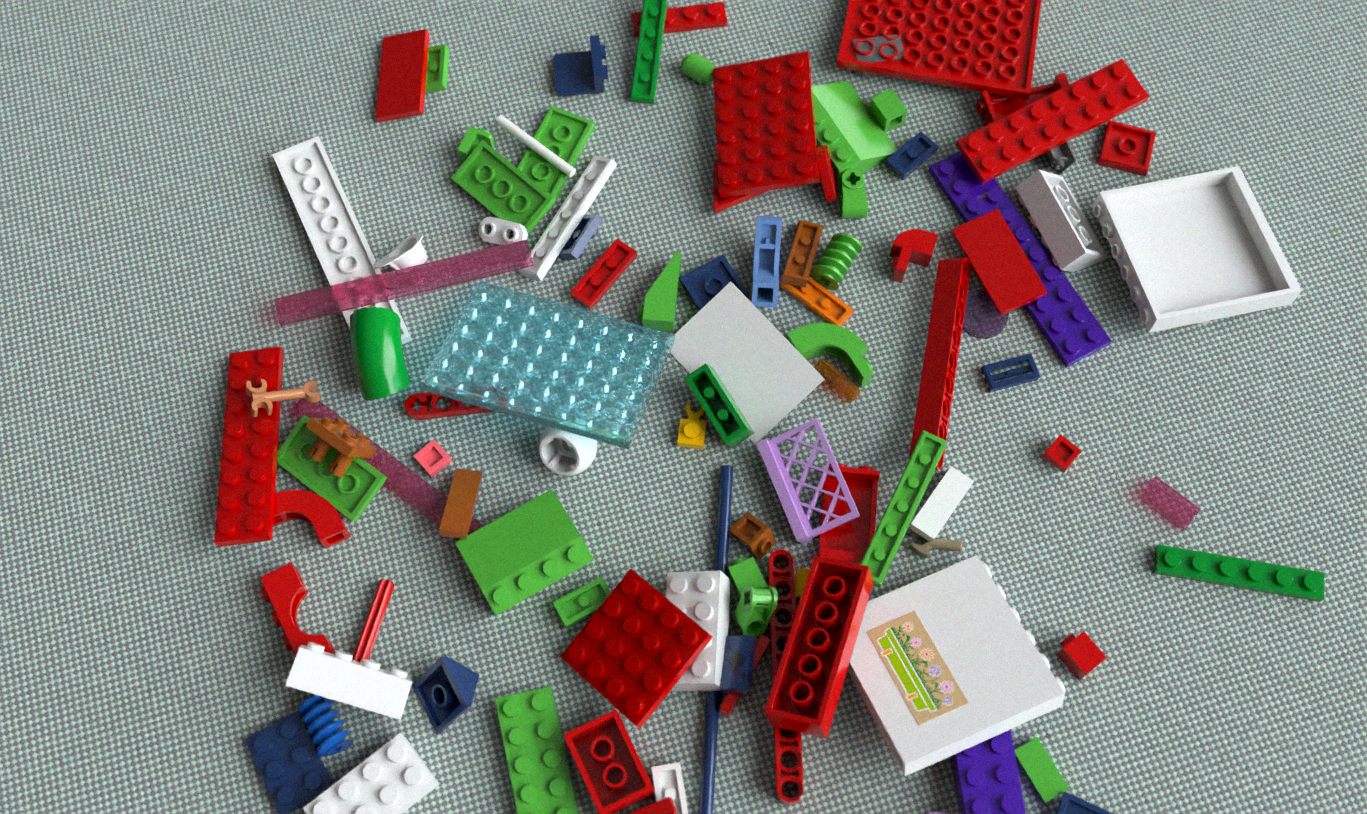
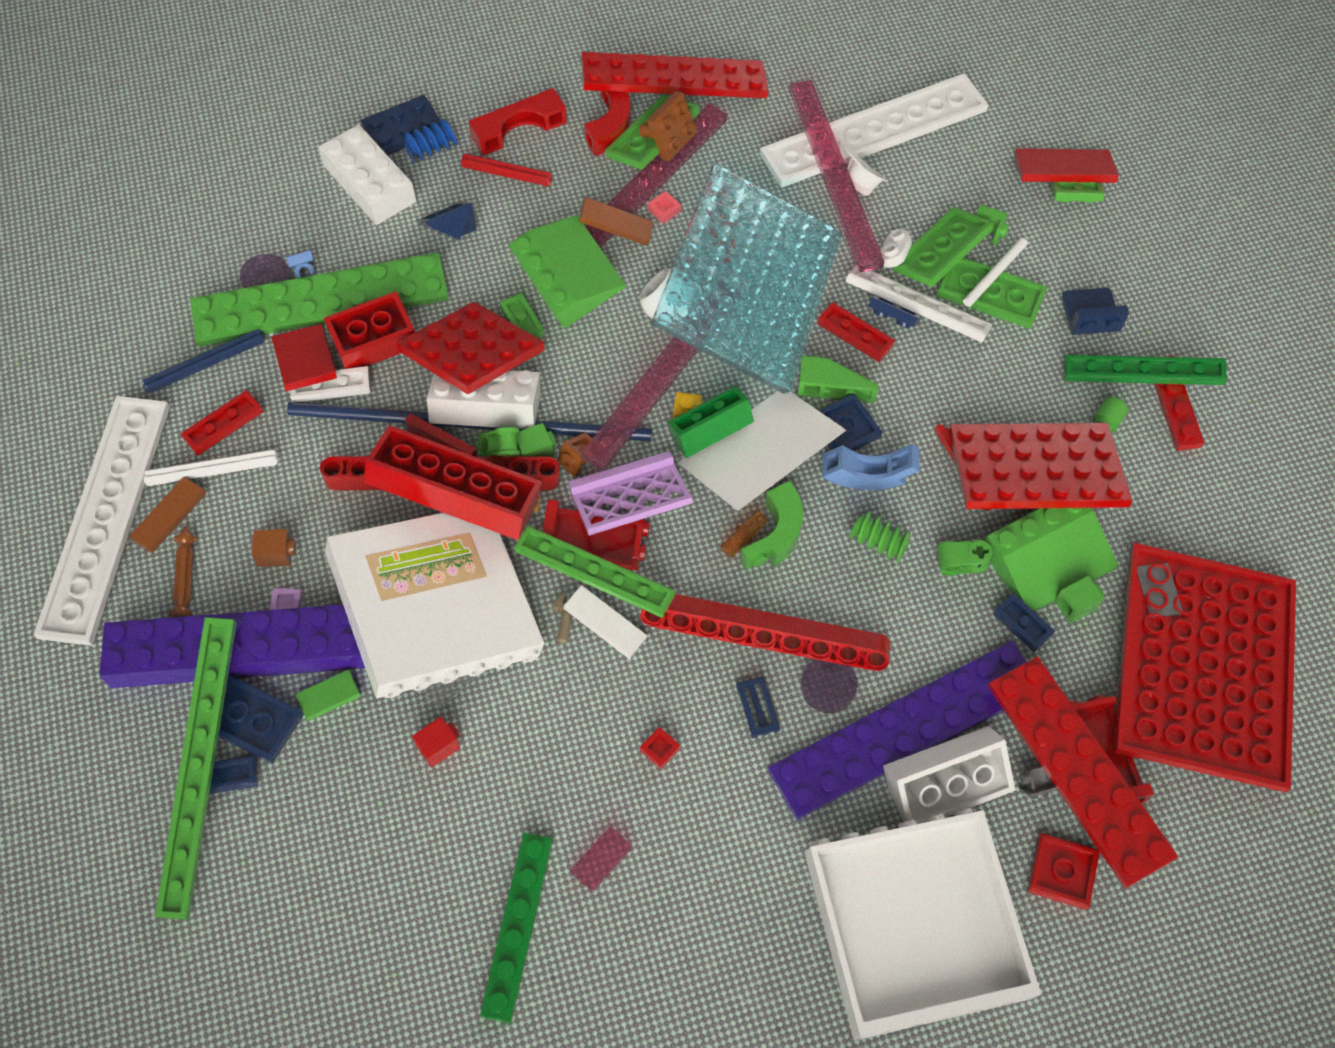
camera: 90 degrees right, 5 degrees down
(264, 399) = (714, 74): nougat bar -> none
(350, 681) = (454, 144): white slope -> none
(378, 352) = (756, 149): green brick -> none
(705, 476) = (638, 404): none -> clear pink plate
(738, 664) = (448, 426): dark blue tile -> none
(802, 253) = (890, 506): dark orange tile -> none
(819, 301) = (840, 521): orange tile -> none
(827, 173) = (986, 526): red tile -> none
(913, 247) = (903, 609): red brick -> none
(999, 262) = (888, 697): red tile -> none

